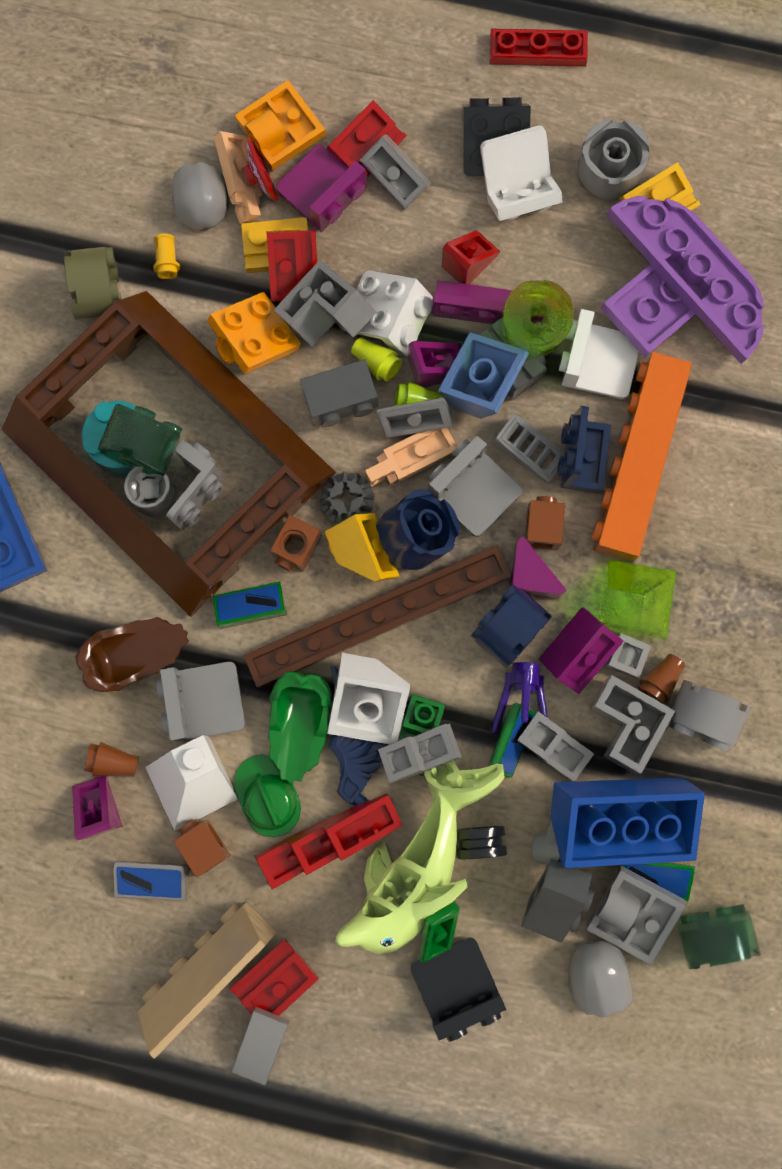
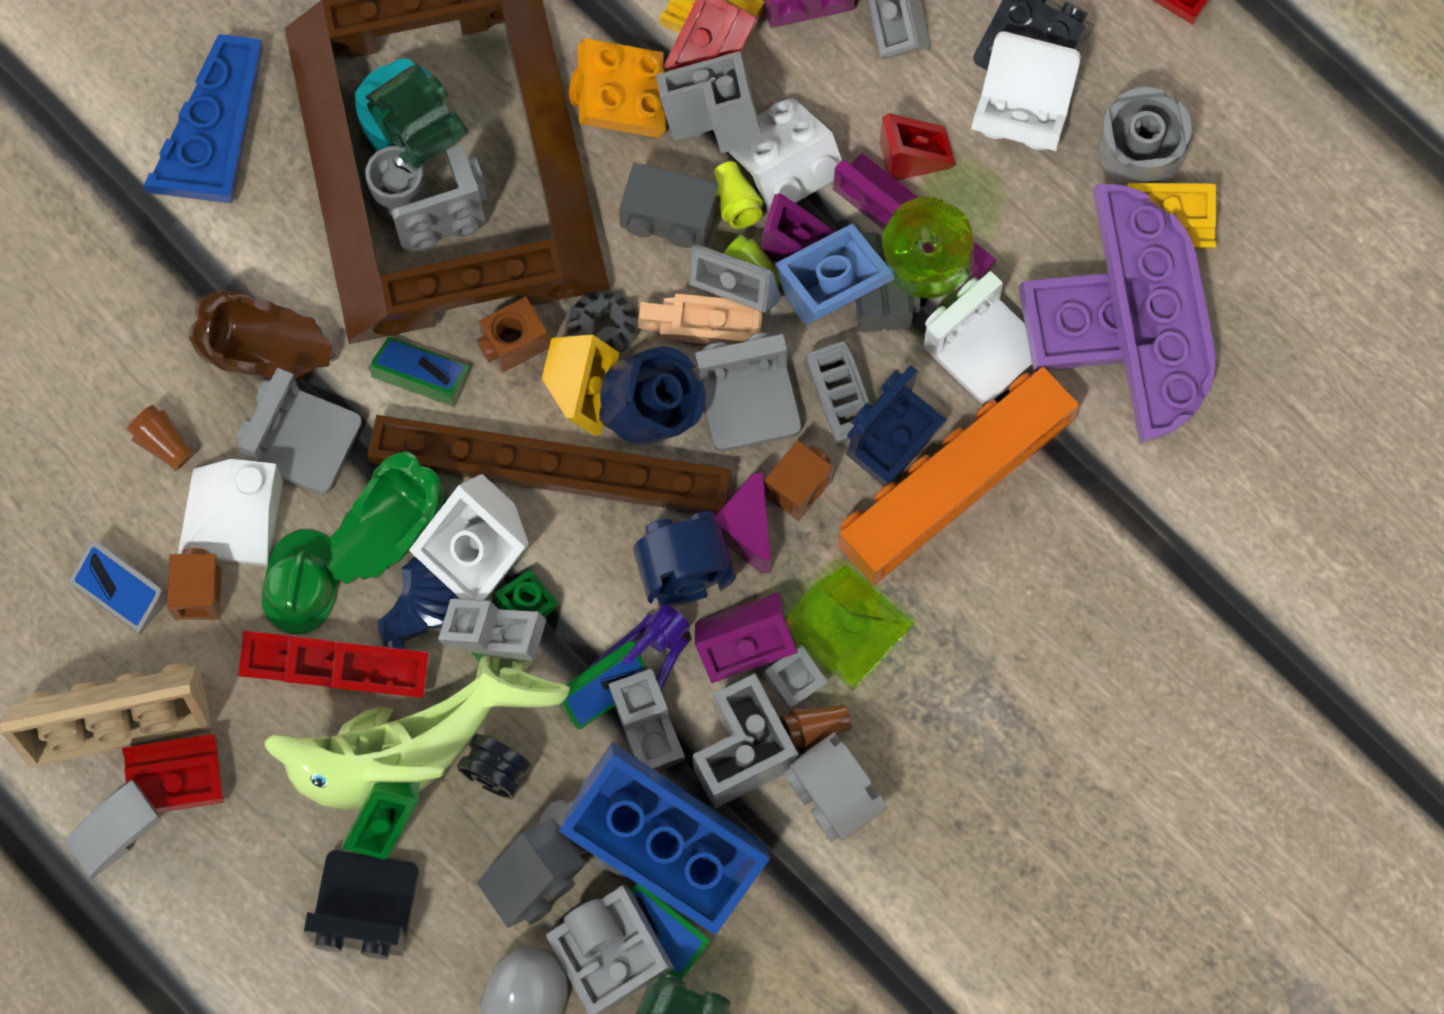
camera: 30 degrees right, 10 degrees down
(94, 808) = (110, 478): magenta slope -> none

